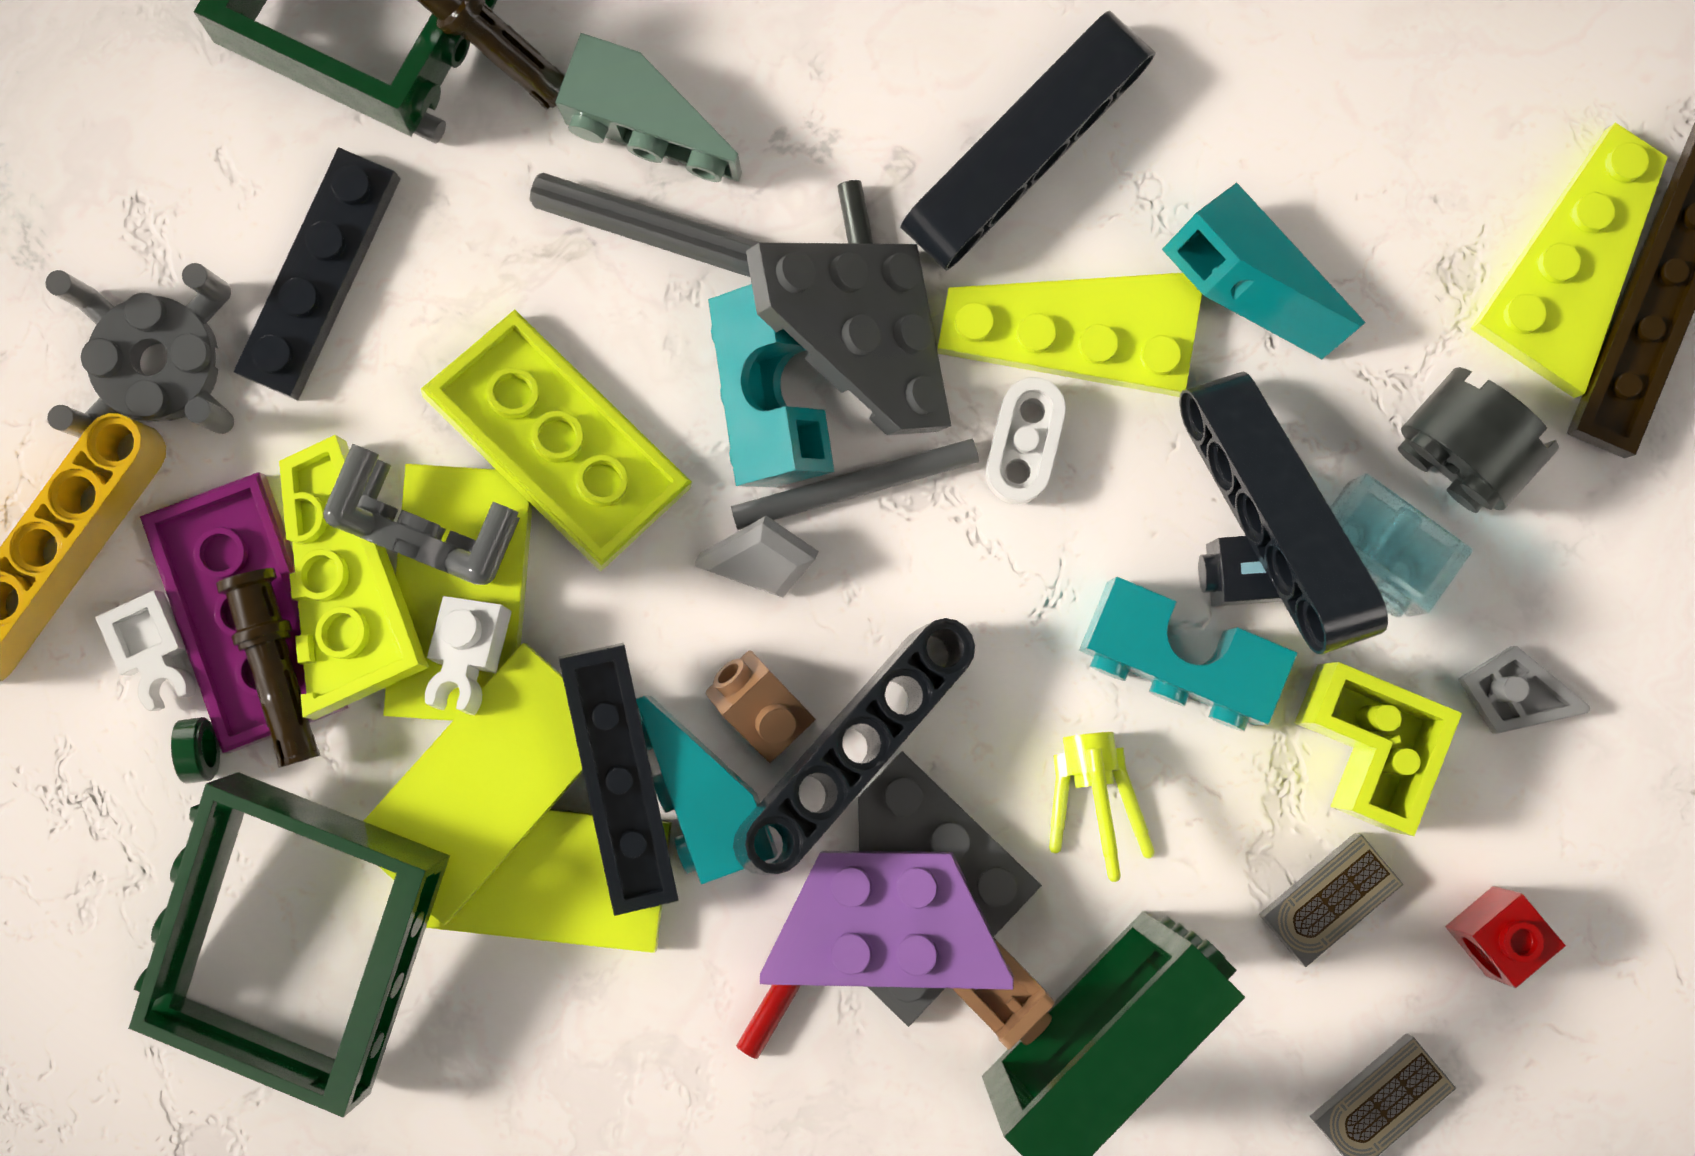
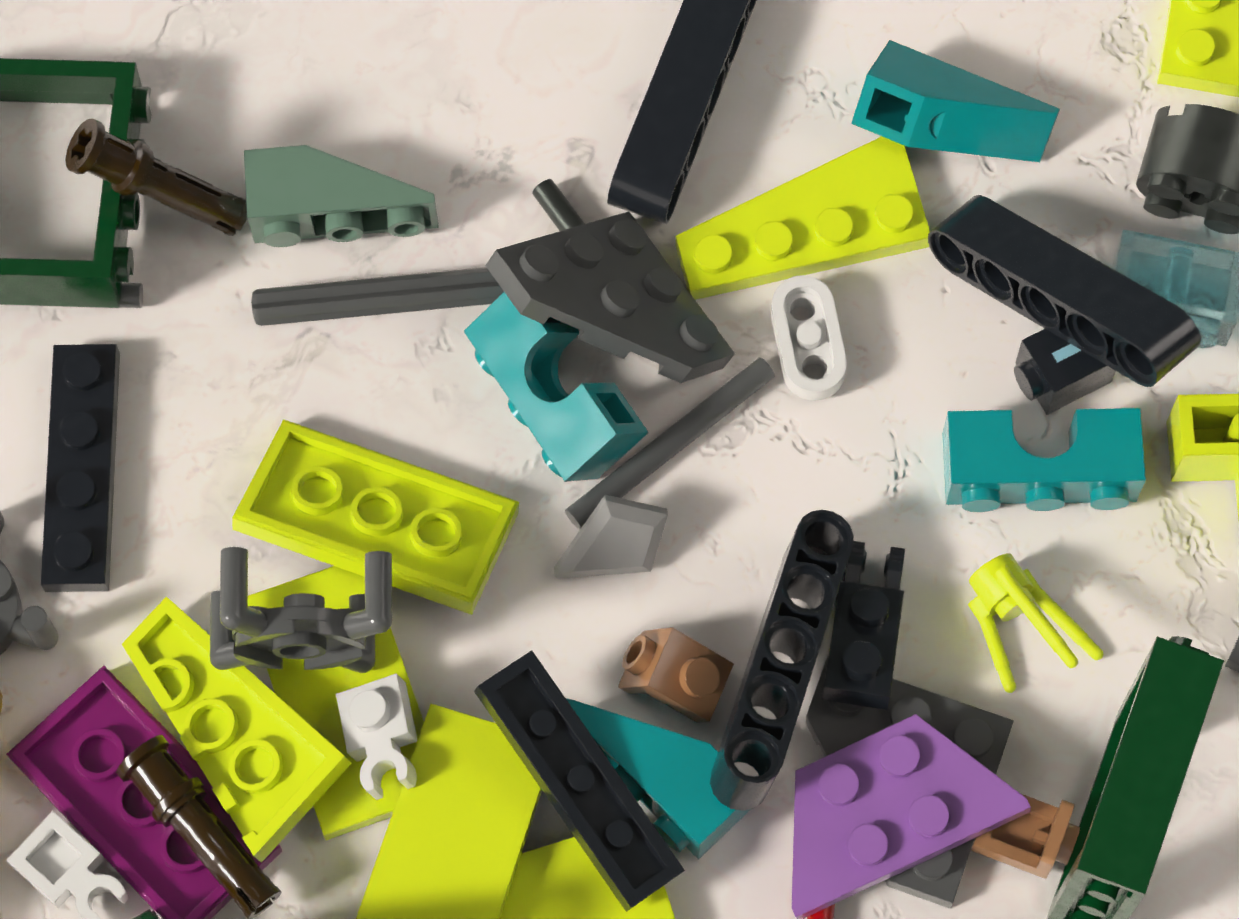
camera: 25 degrees left, 15 degrees down
(944, 750) = (865, 633): none -> black hinge

